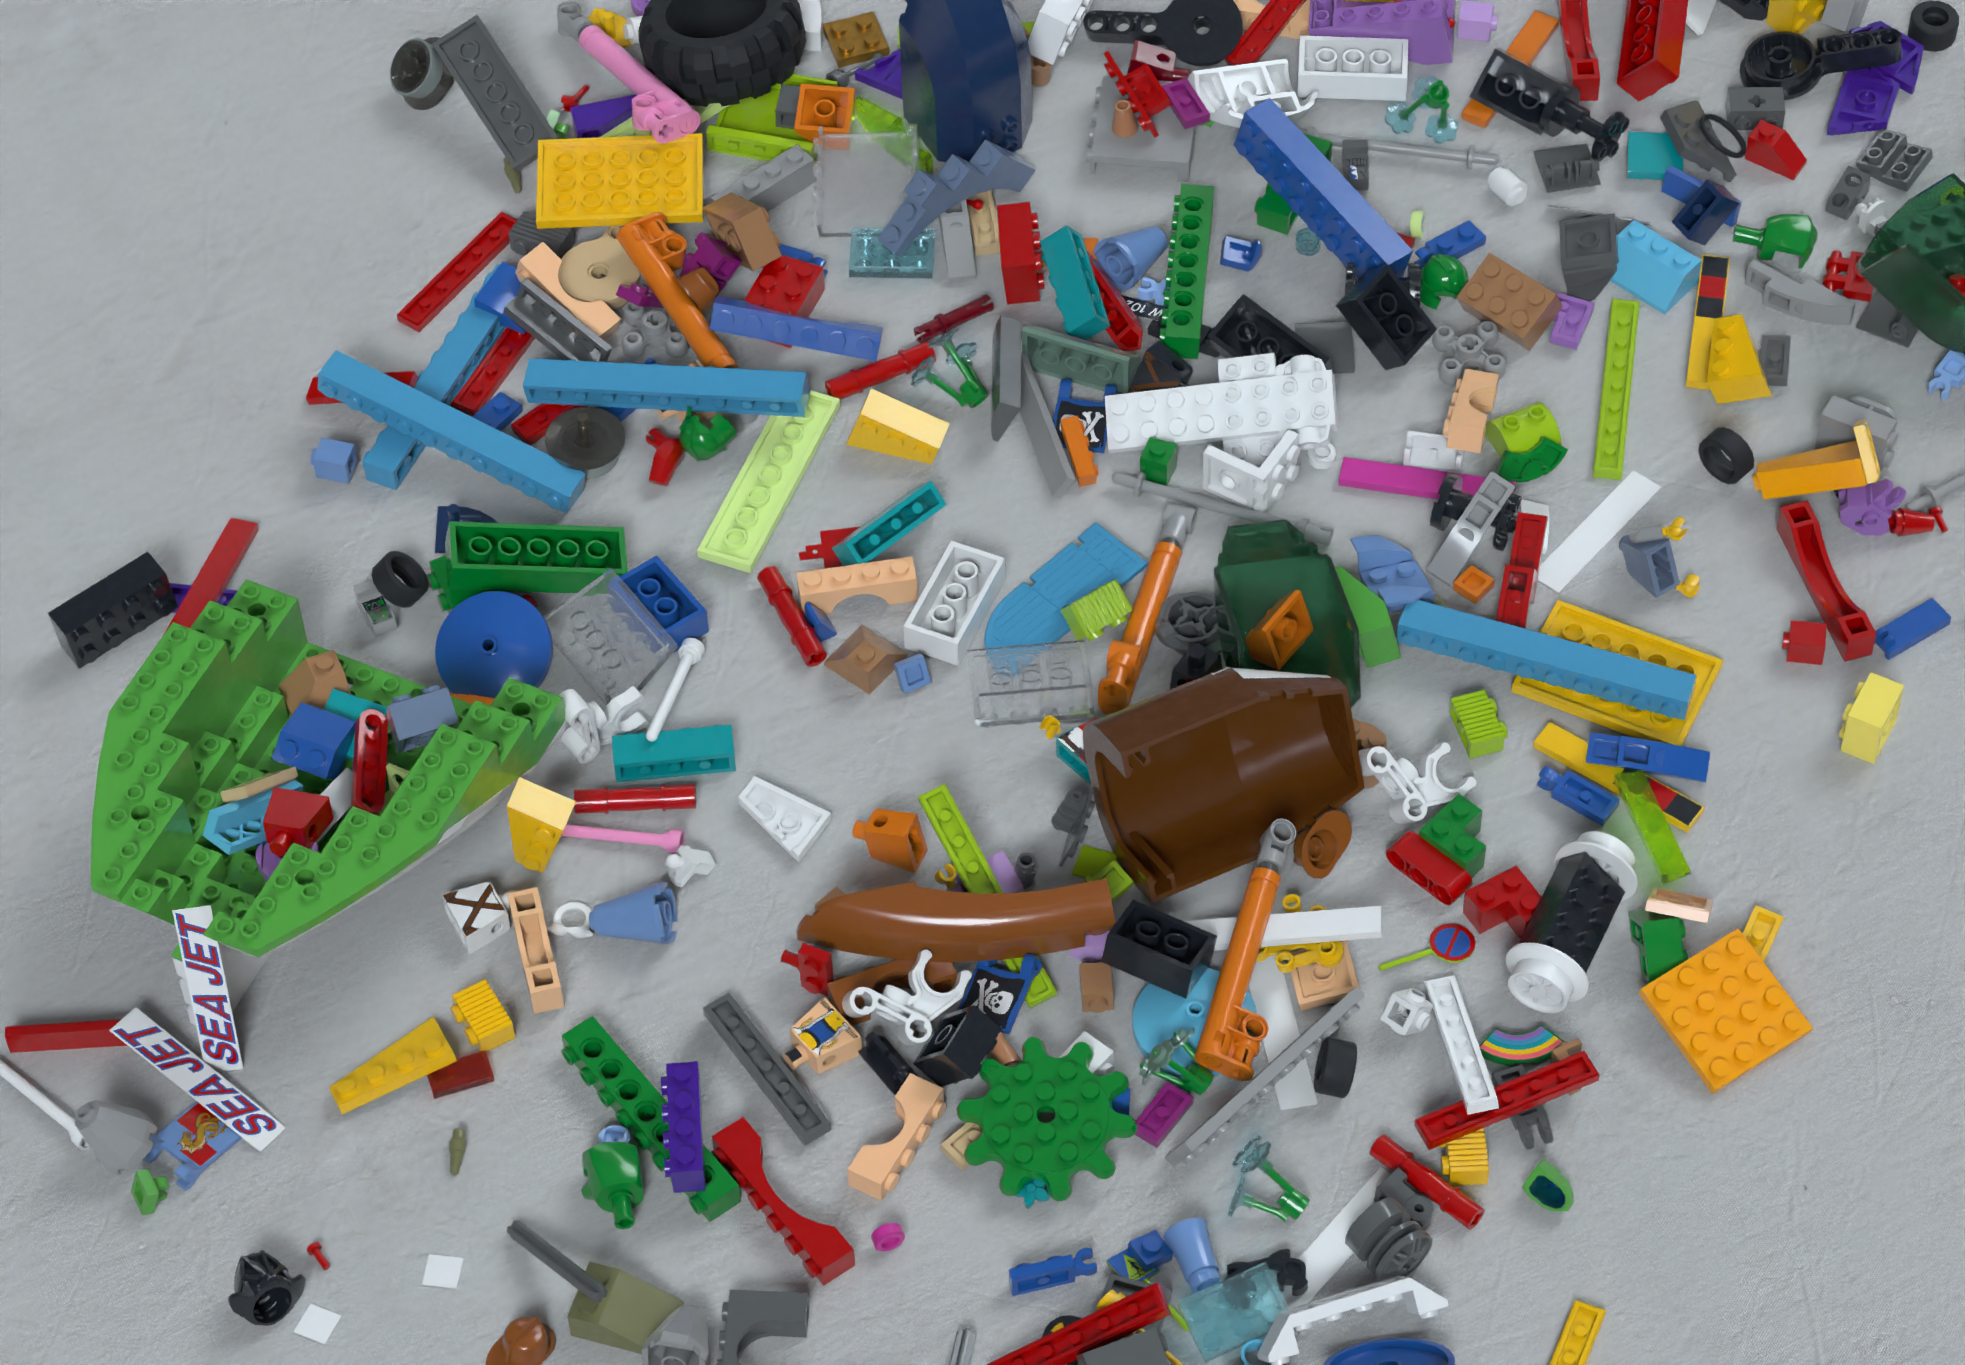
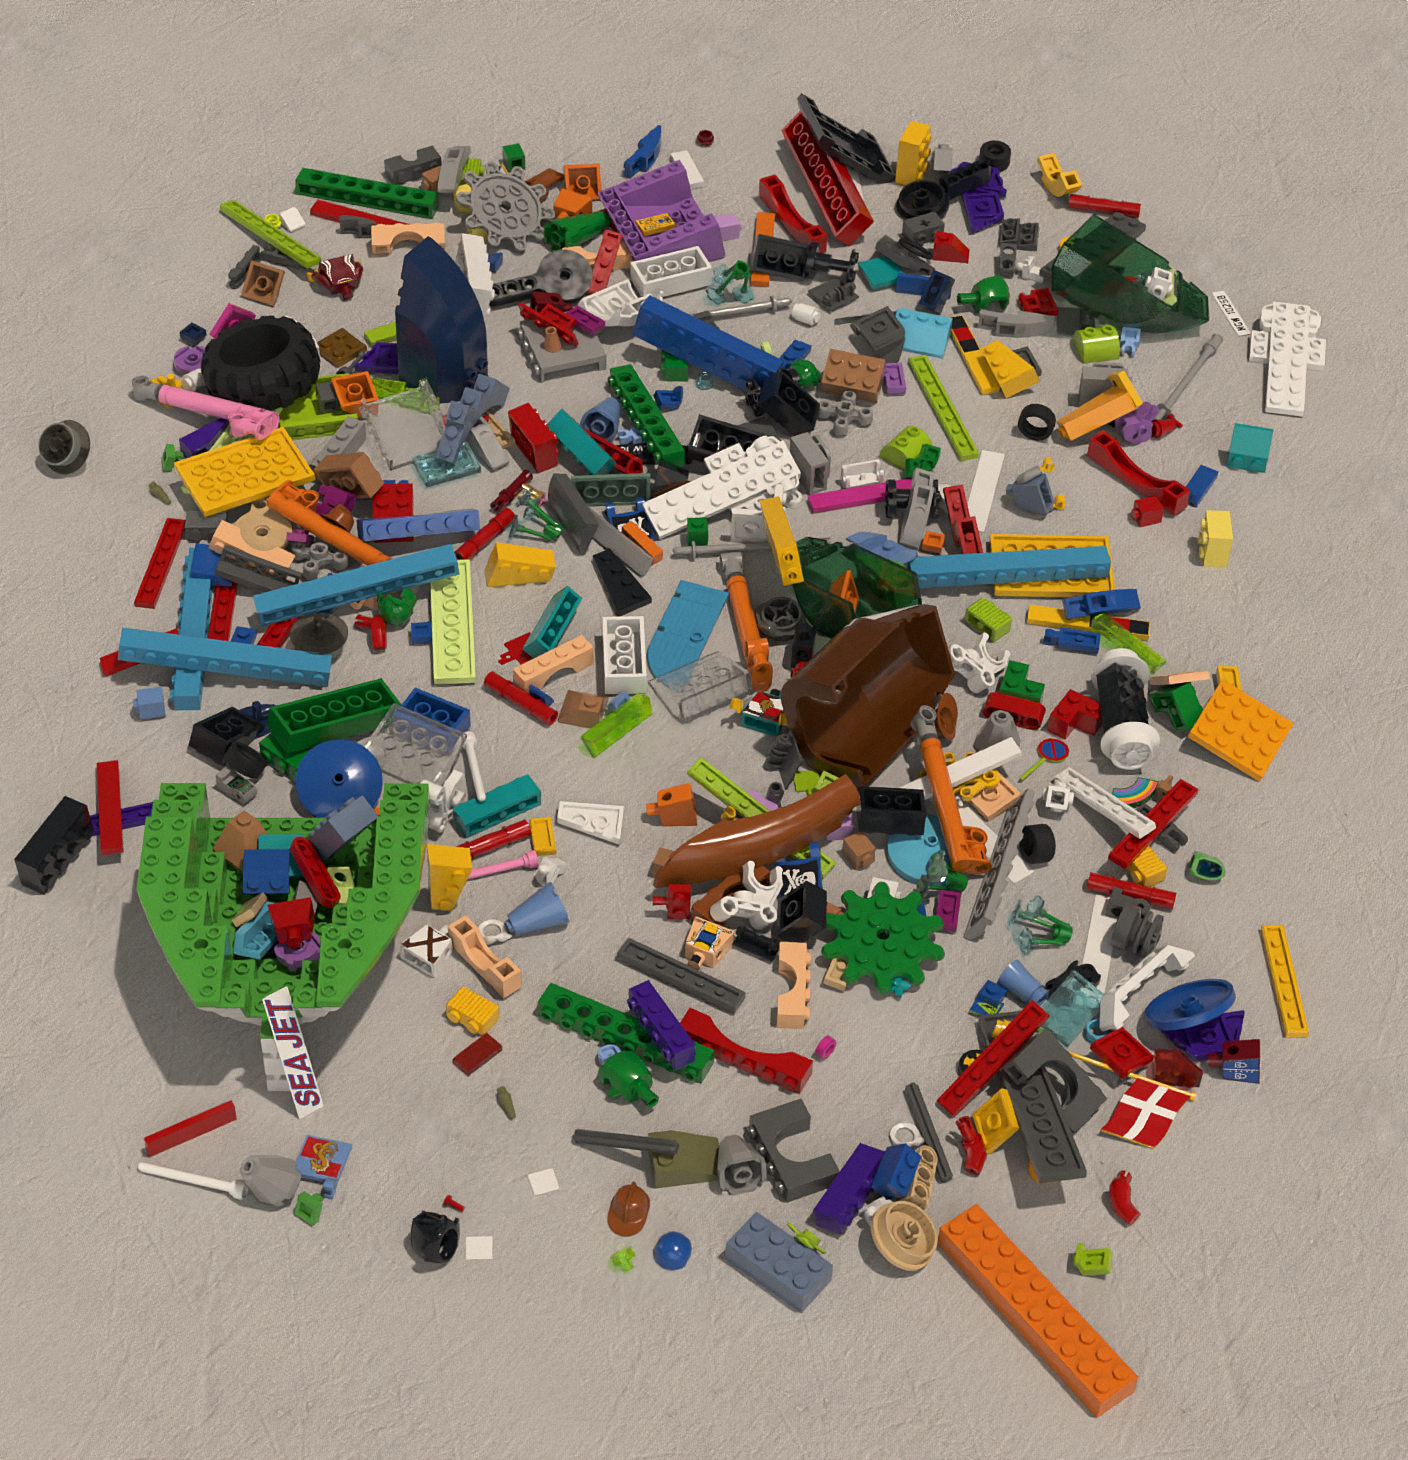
camera: 30 degrees left, 5 degrees down
(197, 1079) = (300, 1122): sticker -> none
(398, 1065) = (432, 1064): yellow wing -> none
(405, 527) = (216, 733): none -> black slope
(495, 91) = (126, 441): dark grey plate -> none
(571, 101) = (172, 438): red hand -> none
(709, 815) = (542, 836): none -> yellow tile
(720, 479) = (421, 632): none -> blue plate
(891, 696) = (617, 724): none -> clear neon green slope
(981, 336) = (535, 494): none -> pearl gold piece
(1017, 502) = (622, 587): none -> black wing
(1050, 1273) = (940, 1030): blue plate -> none
(1096, 610) = (717, 629): lime brick -> none
(1228, 517) = (781, 541): none -> yellow brick
(1369, 411) = (812, 460): none -> light grey brick
(1384, 887) = (997, 729): none -> light grey cone
(1466, 414) = (876, 449): light nougat arch -> none
(1897, 365) = (1097, 344): none -> lime brick

